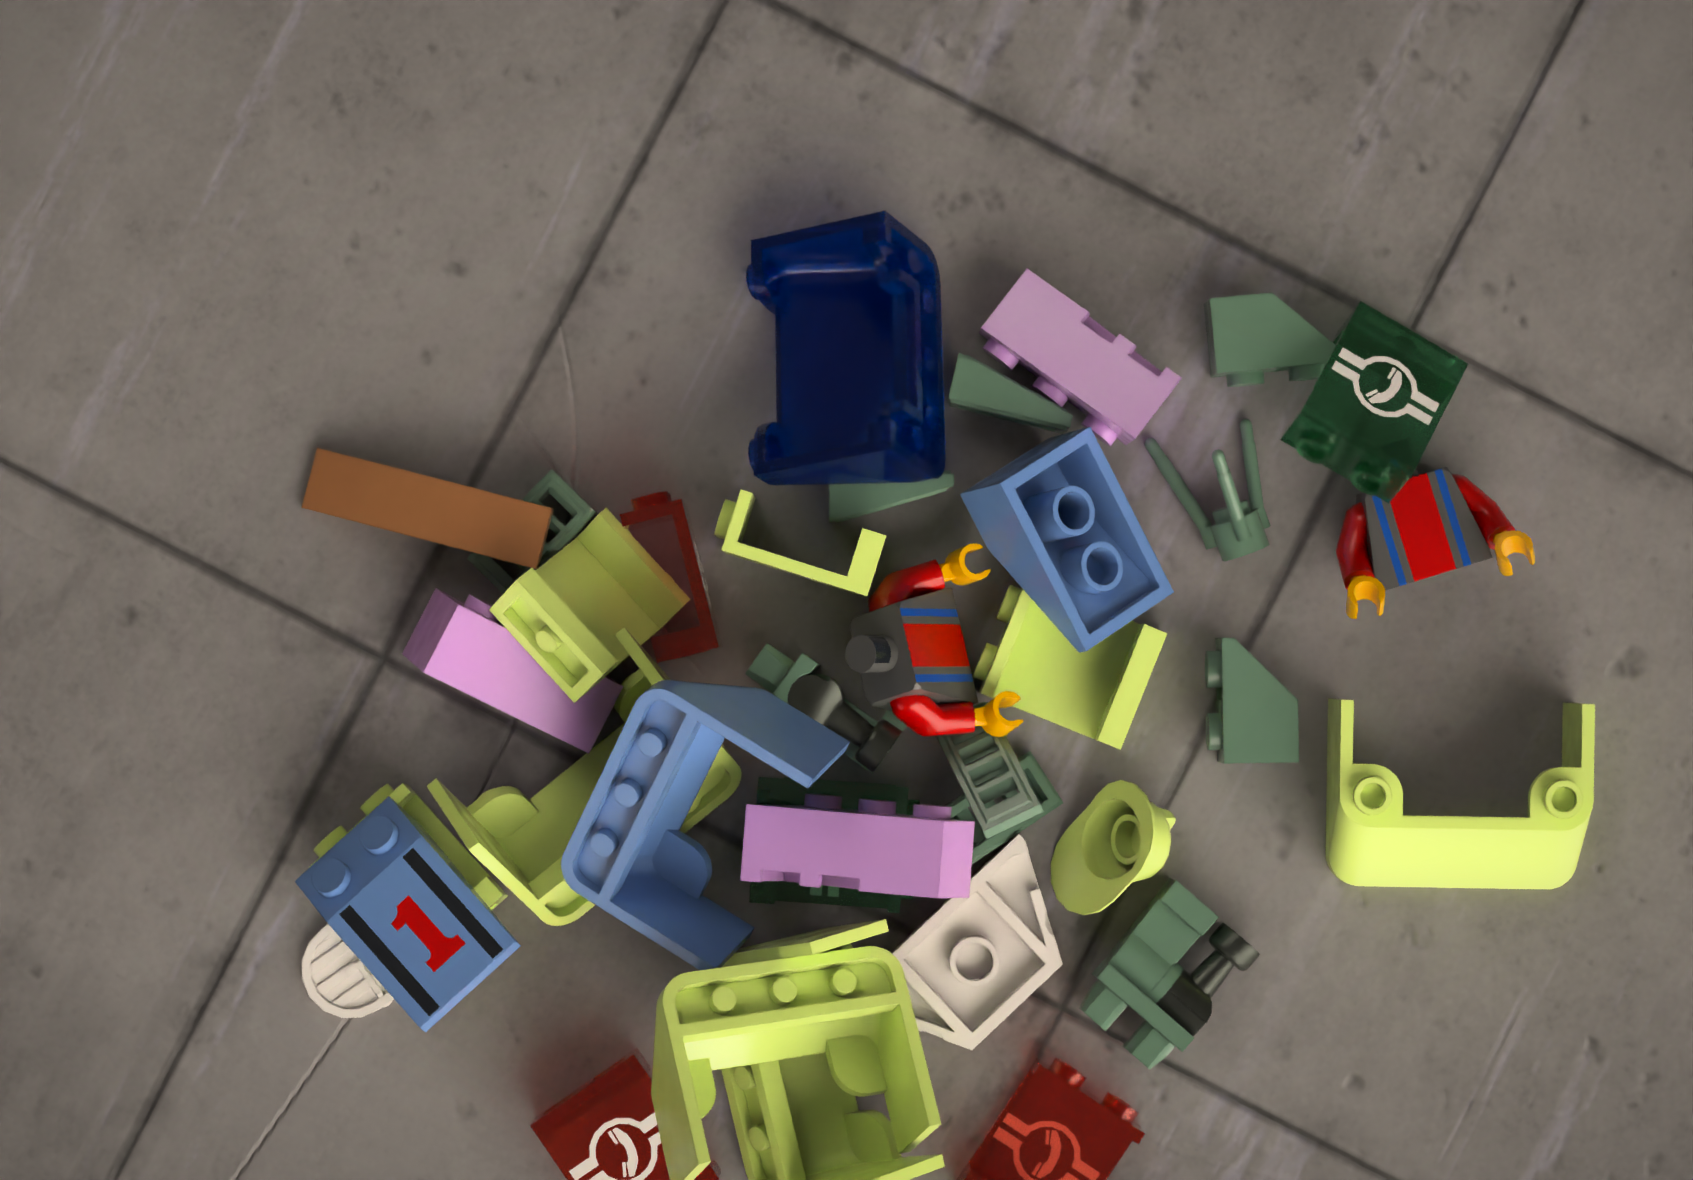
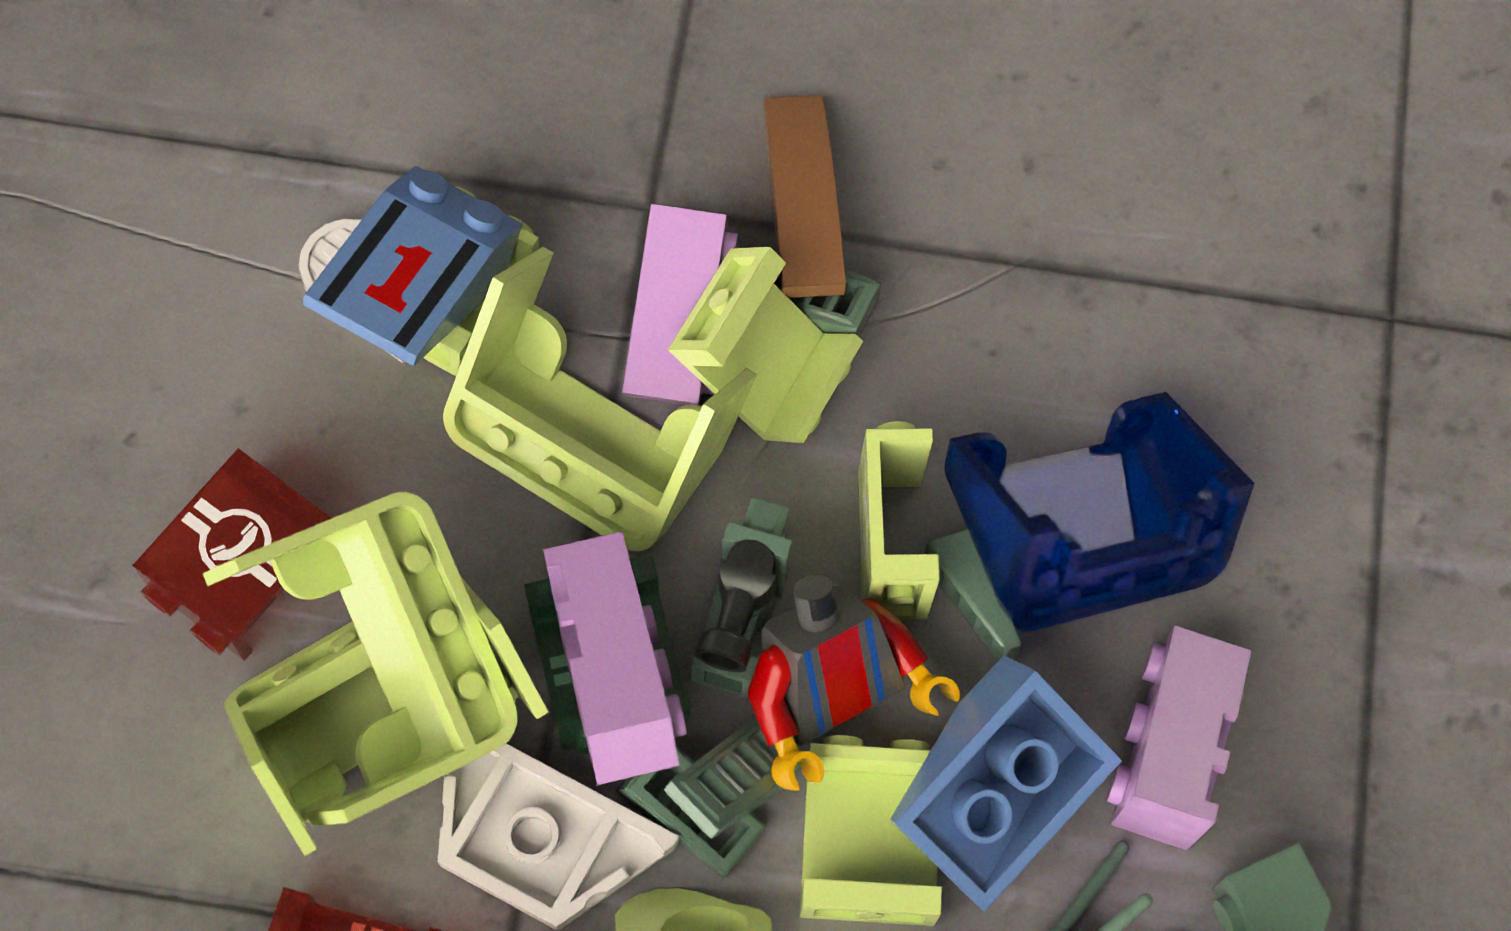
camera: 70 degrees right, 20 degrees down
(629, 837) = (597, 442): medium blue windscreen -> none
(657, 509) = (782, 458): clear red panel -> none
(992, 394) = (1110, 666): sand green slope -> none

